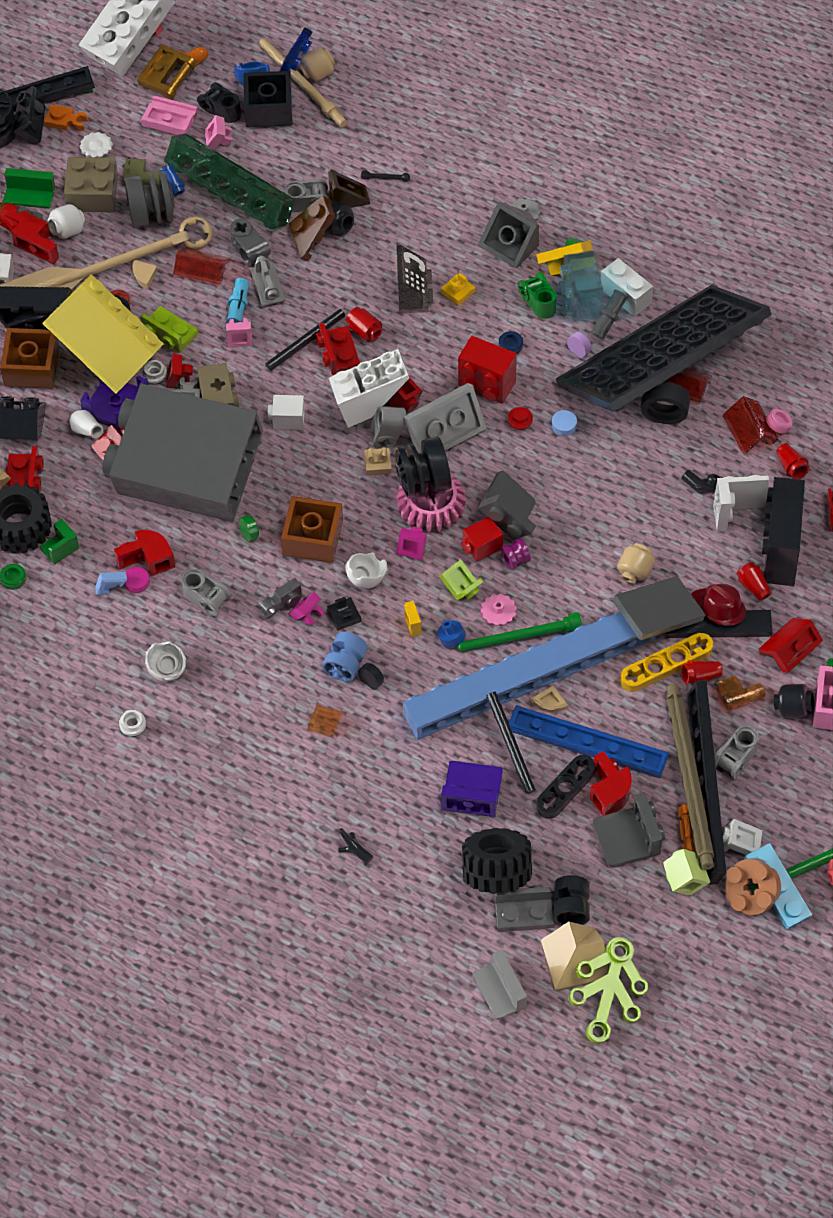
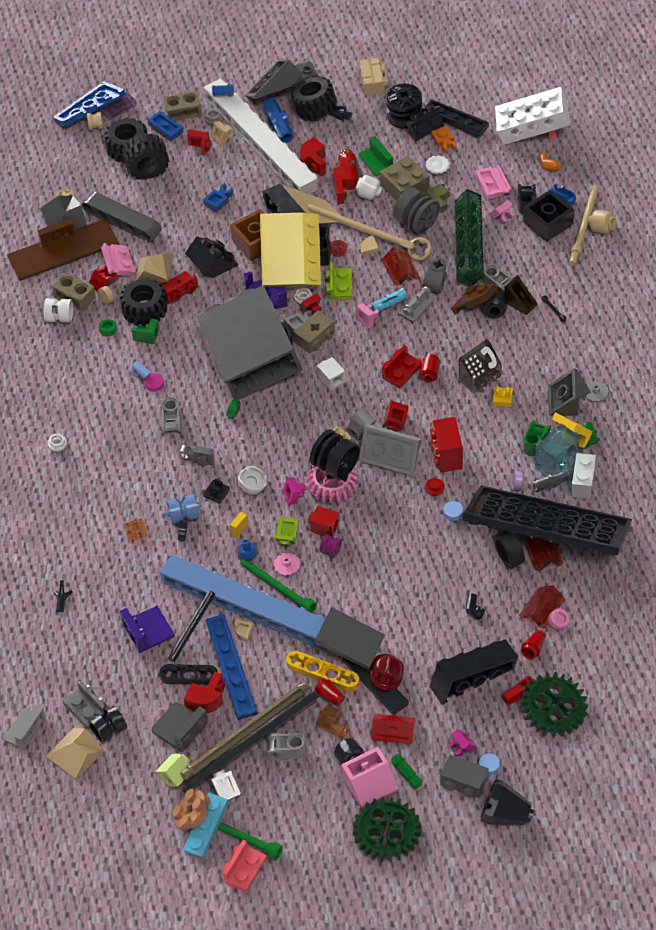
camera: 55 degrees right, 5 degrees down
(84, 423) = (235, 287): white cone -> none
(147, 547) = (174, 373): red brick -> none
(161, 67) = (521, 155): pearl gold plate -> none
(165, 661) = (106, 428): white hair -> none
(176, 184) = (444, 218): blue pin -> none
(299, 48) = (592, 203): clear blue wing -> none
(304, 340) = (391, 349): black bar -> none
(305, 607) = (202, 469): dark pink tile -> none
(312, 529) = (256, 436): dark orange brick -> none
(368, 386) = (373, 393): white slope -> none
(497, 860) = (99, 667): black tyre -> none
(508, 506) = (359, 518): dark grey bracket -> none
(511, 341) = (488, 447): dark blue tile -> none
(610, 985) = (64, 780): lime plant -> none
(636, 563) = (378, 609): tan head -> none
(738, 494) = (467, 621): white bracket -> none
(754, 581) = (422, 679): red cone -> none

